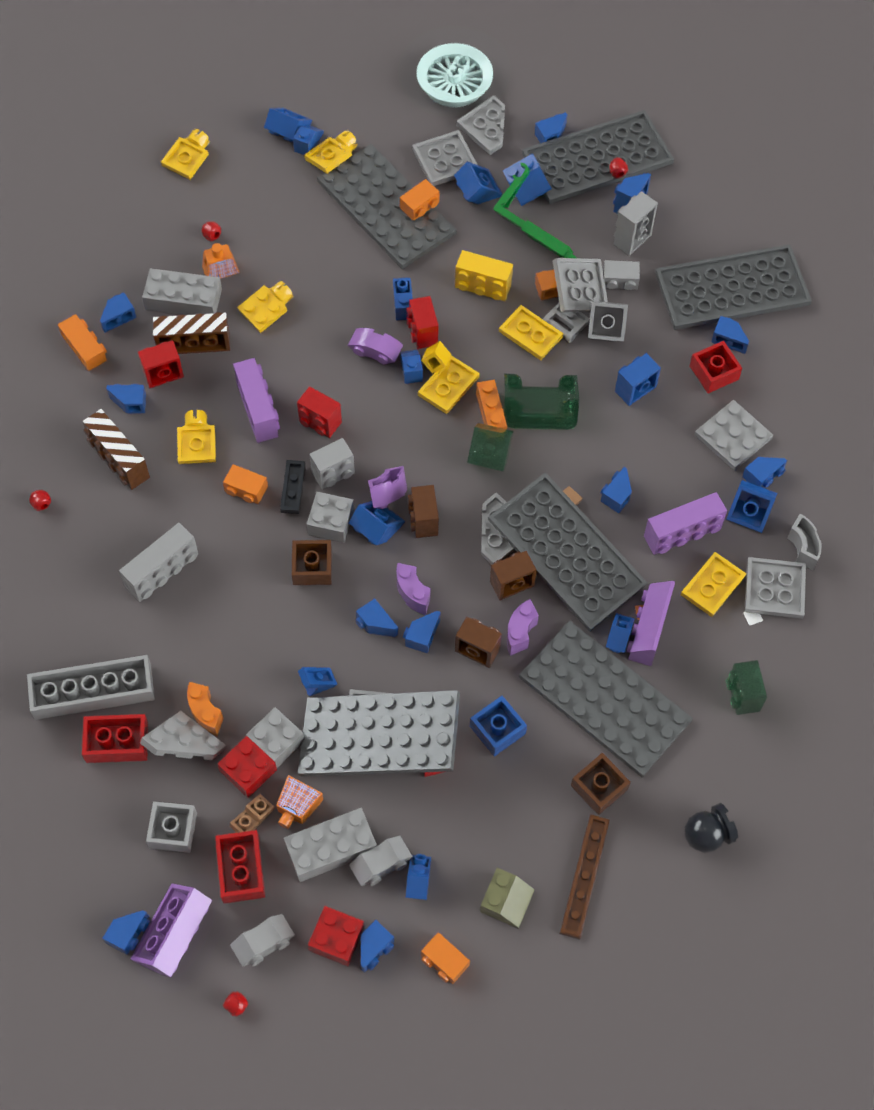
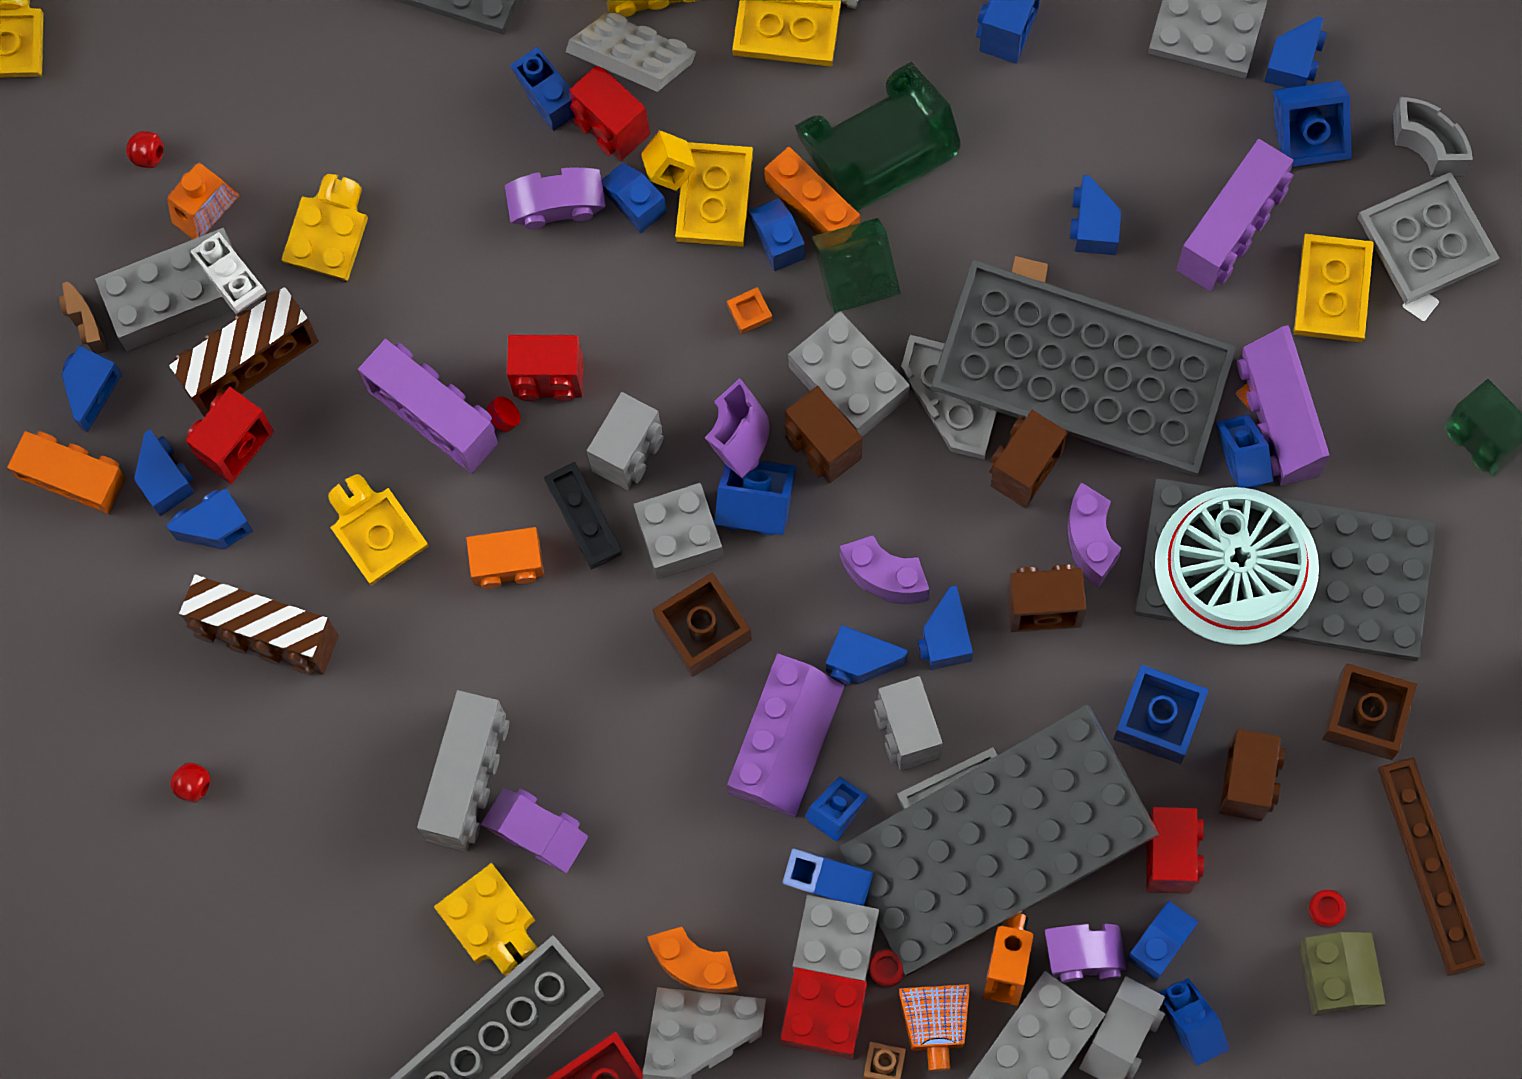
camera: 25 degrees left, 10 degrees up
(120, 365) = (158, 475): none -> blue slope
(126, 634) = (489, 919): none -> yellow plate
(135, 288) = (82, 316): none -> medium nougat slope
(174, 607) = (527, 825): none -> medium lavender brick
(205, 294) = (228, 273): none -> white slope
(287, 423) = (503, 413): none -> red tile
(290, 705) = (827, 877): none -> blue slope
(291, 765) = (886, 968): none -> red tile
(316, 633) = (785, 736): none -> medium lavender slope
(348, 794) = (1009, 961): none -> orange torso
(375, 659) = (909, 724): none -> light grey brick
(382, 808) = (1082, 952): none -> medium lavender brick
(429, 442) = (749, 310): none -> orange plate
(429, 830) = (1162, 940): none -> blue slope
(451, 301) = (631, 51): none -> light grey plate
(455, 494) = (849, 373): none -> light grey brick
(460, 790) = (1172, 855): none -> red brick
(465, 417) = (778, 234): none -> blue slope
(520, 865) = (1327, 908): none -> red tile
(521, 778) = (1251, 775): none -> reddish brown brick
(570, 706) = (1248, 619): none -> light aqua piece

